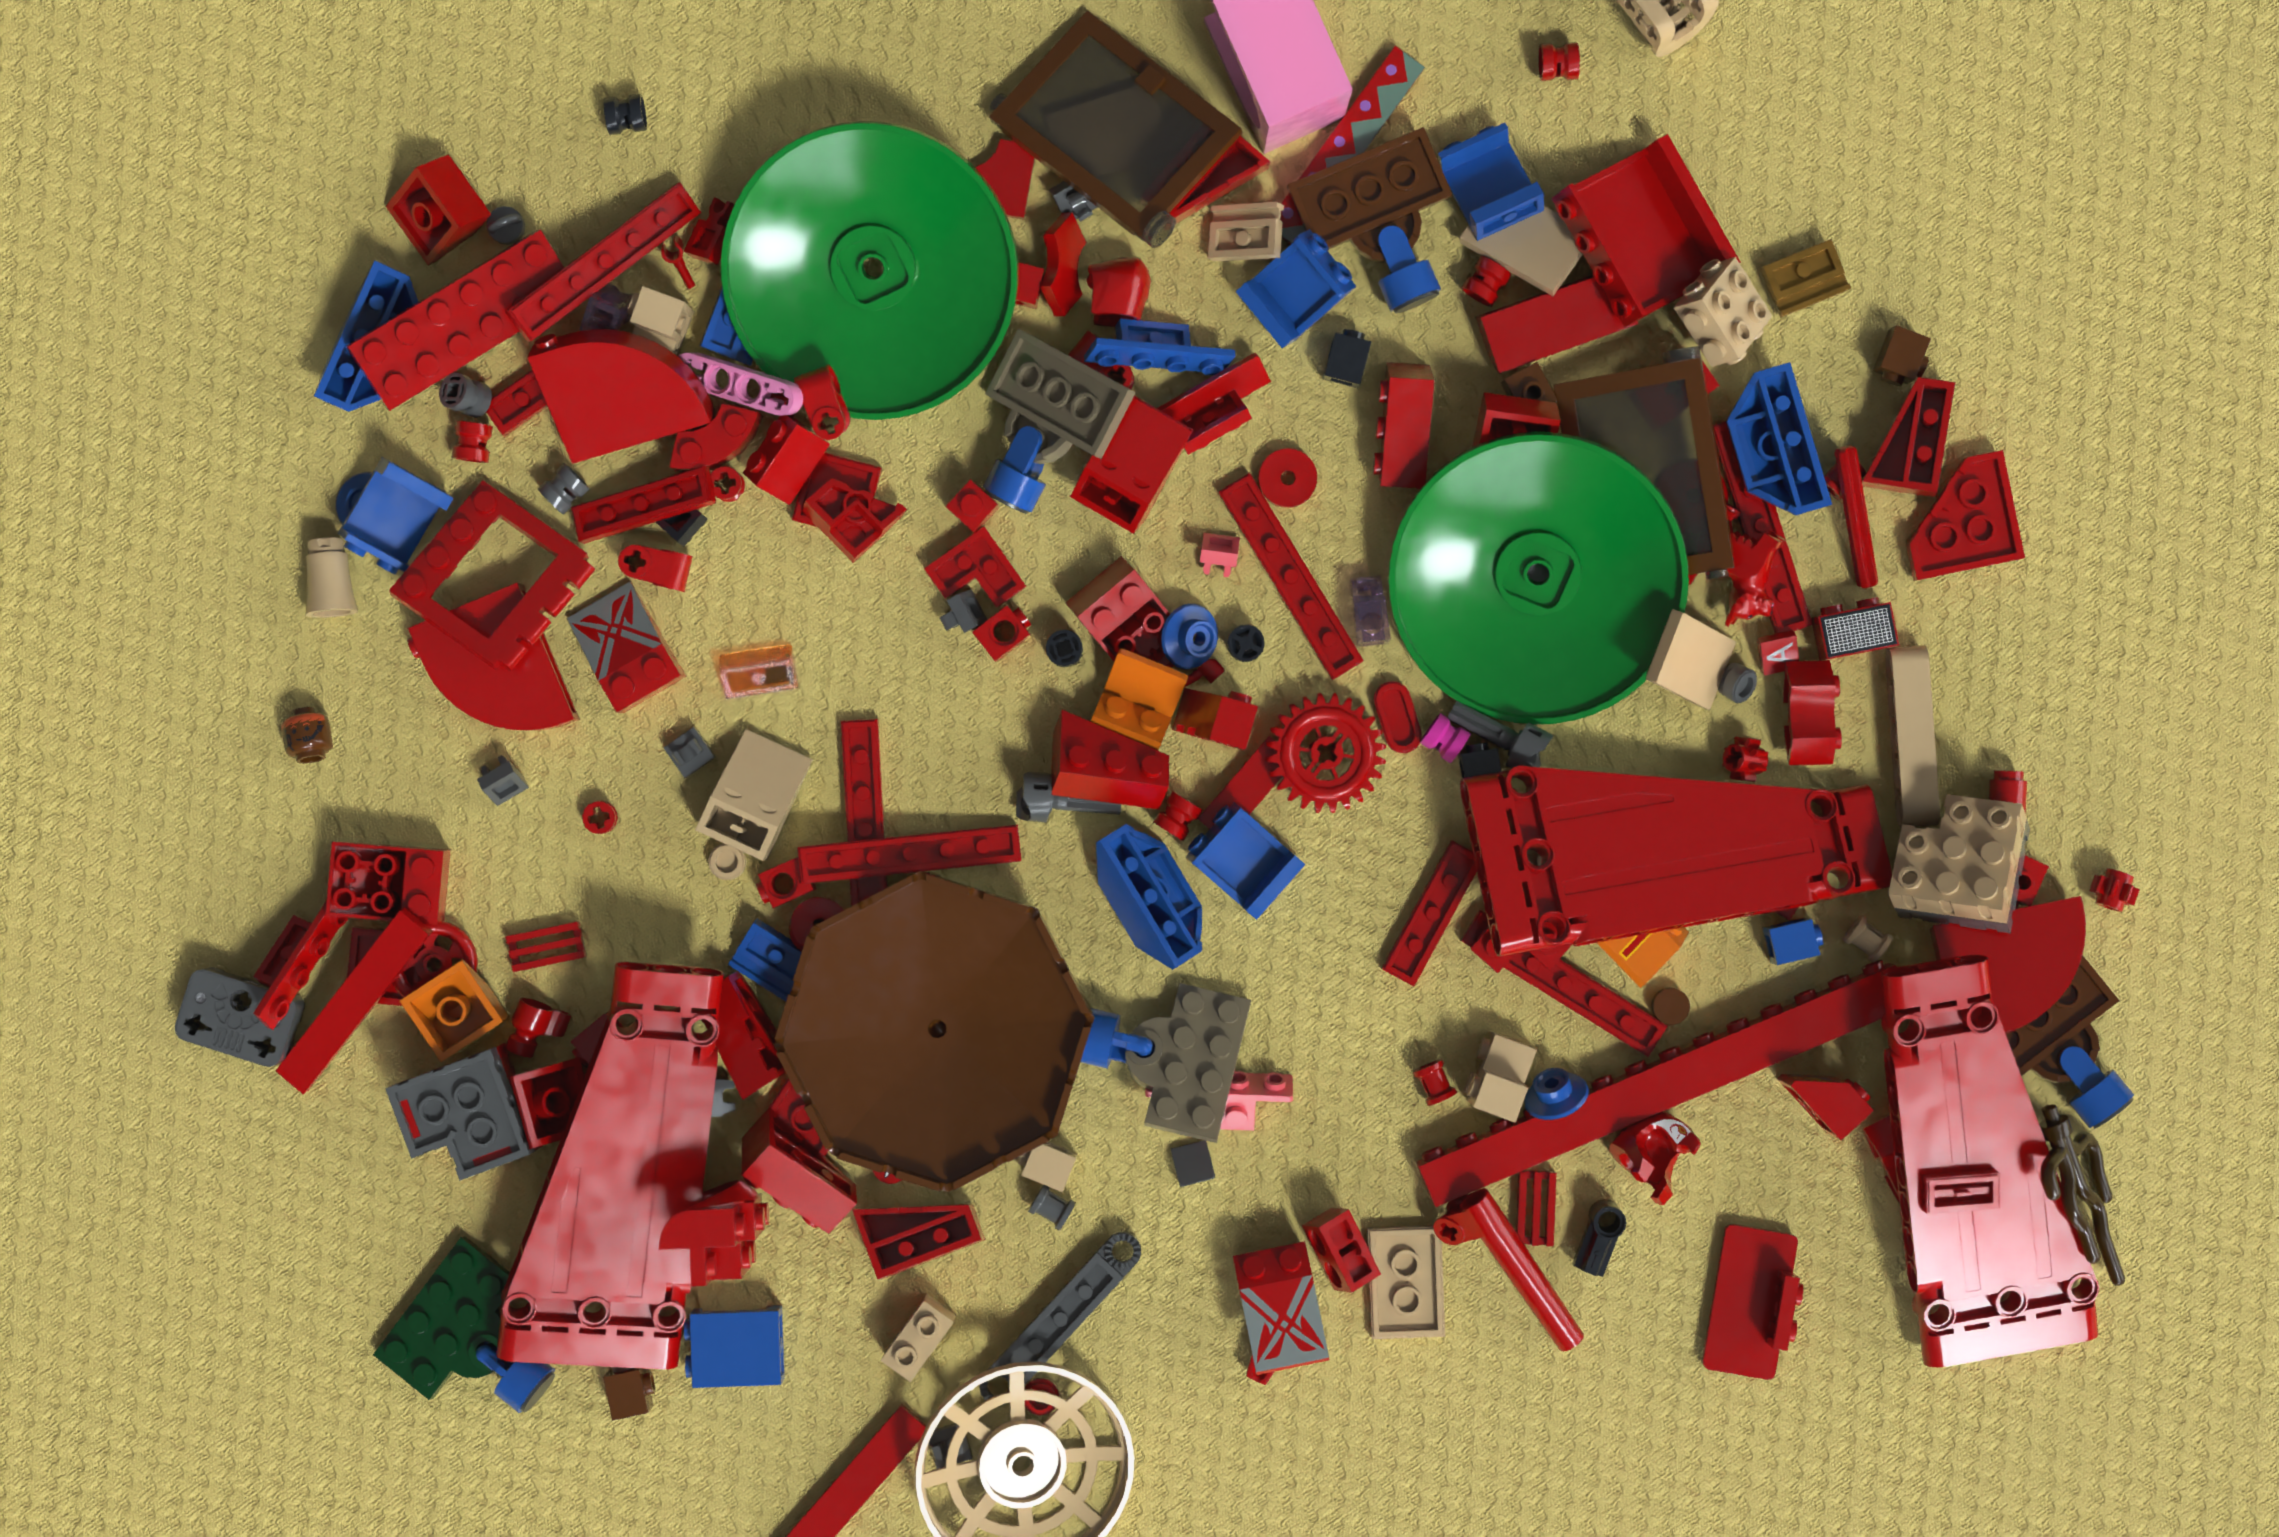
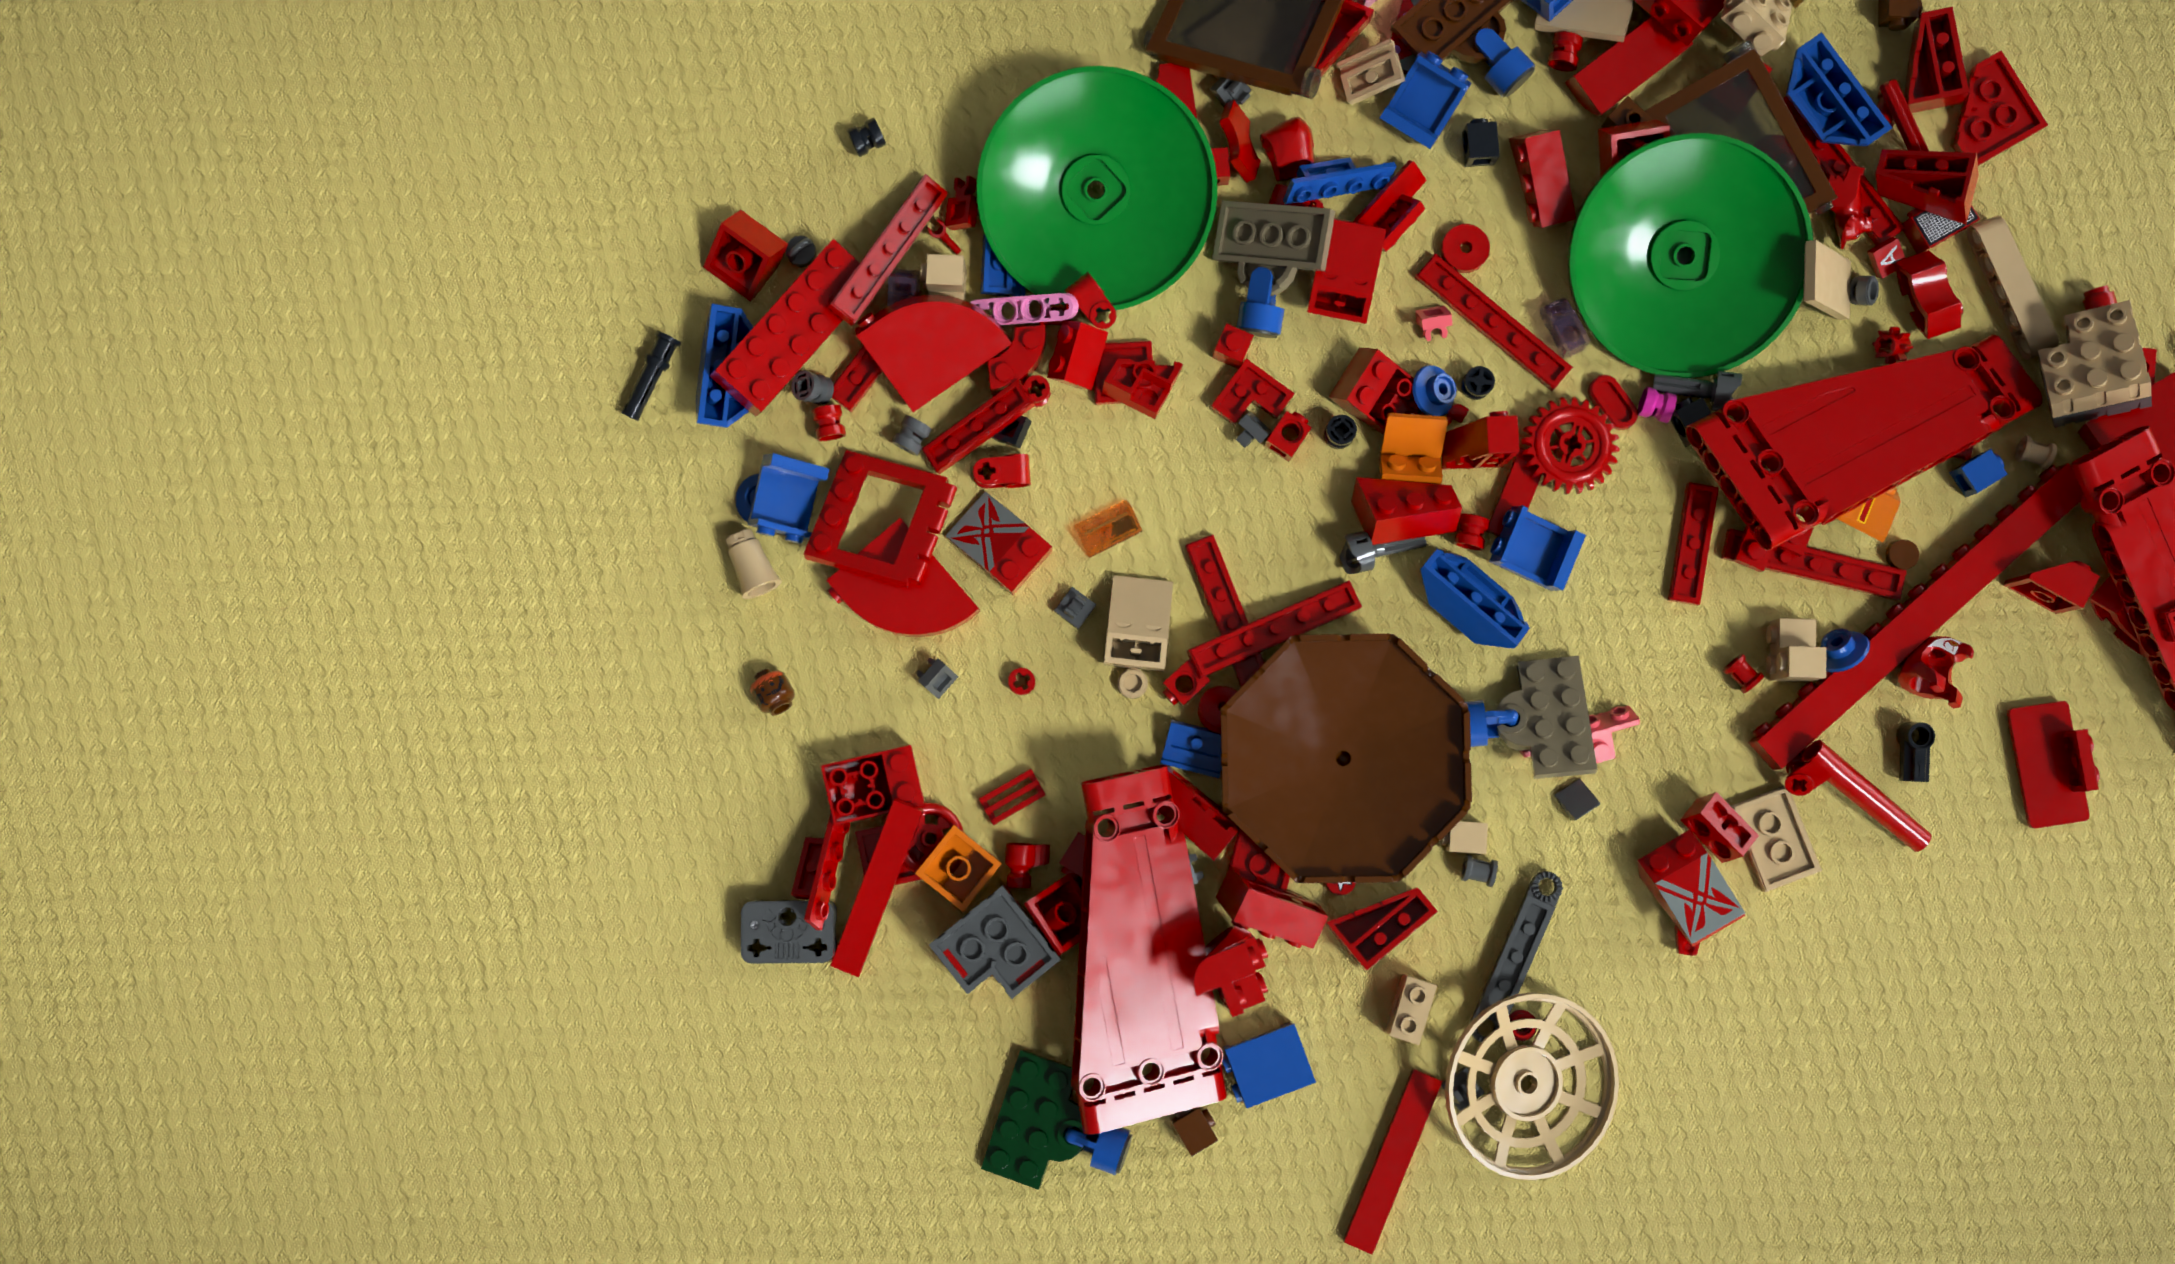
camera: 20 degrees left, 5 degrees down
(292, 304) = (655, 364): none -> black pin
(1537, 1177) = (1865, 741): red tile -> none
(1853, 582) = (1929, 180): none -> red wedge

